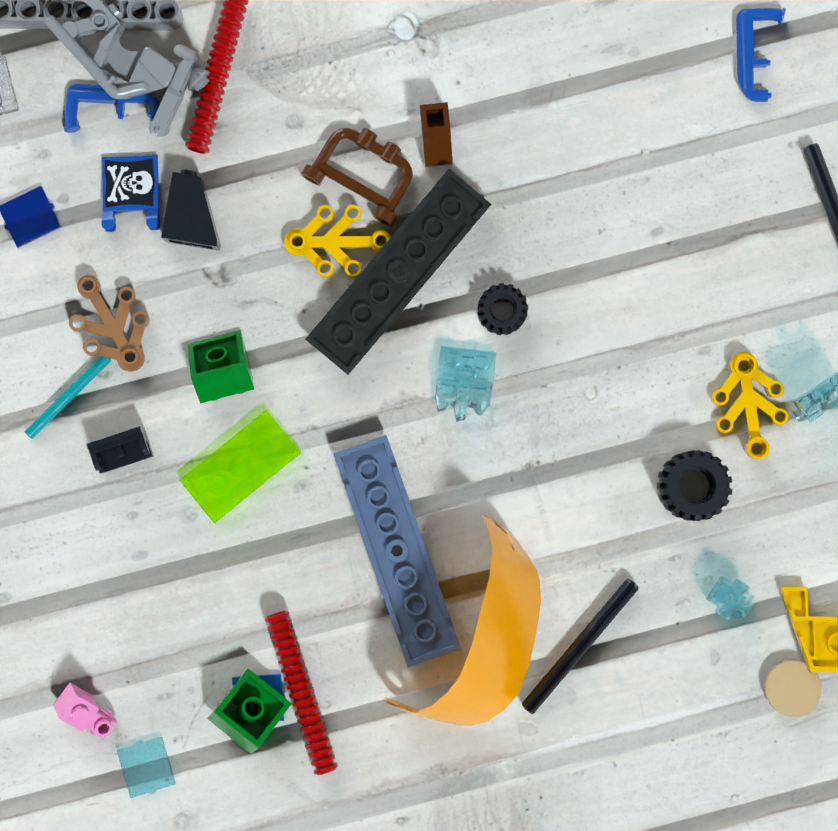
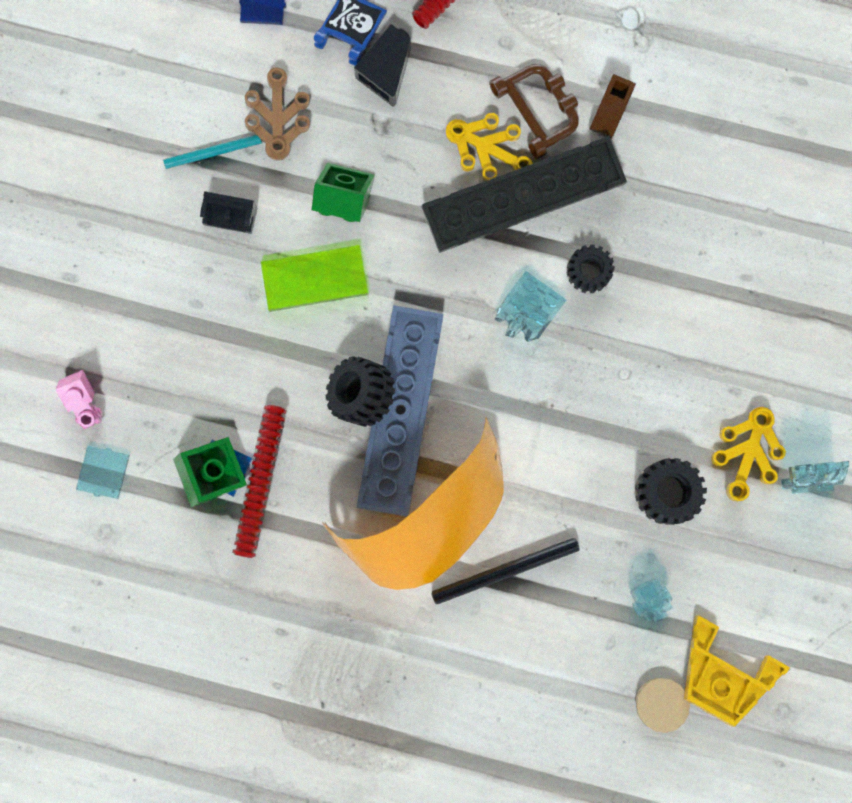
camera: 25 degrees right, 5 degrees down
(366, 556) = (360, 391): none -> black tyre

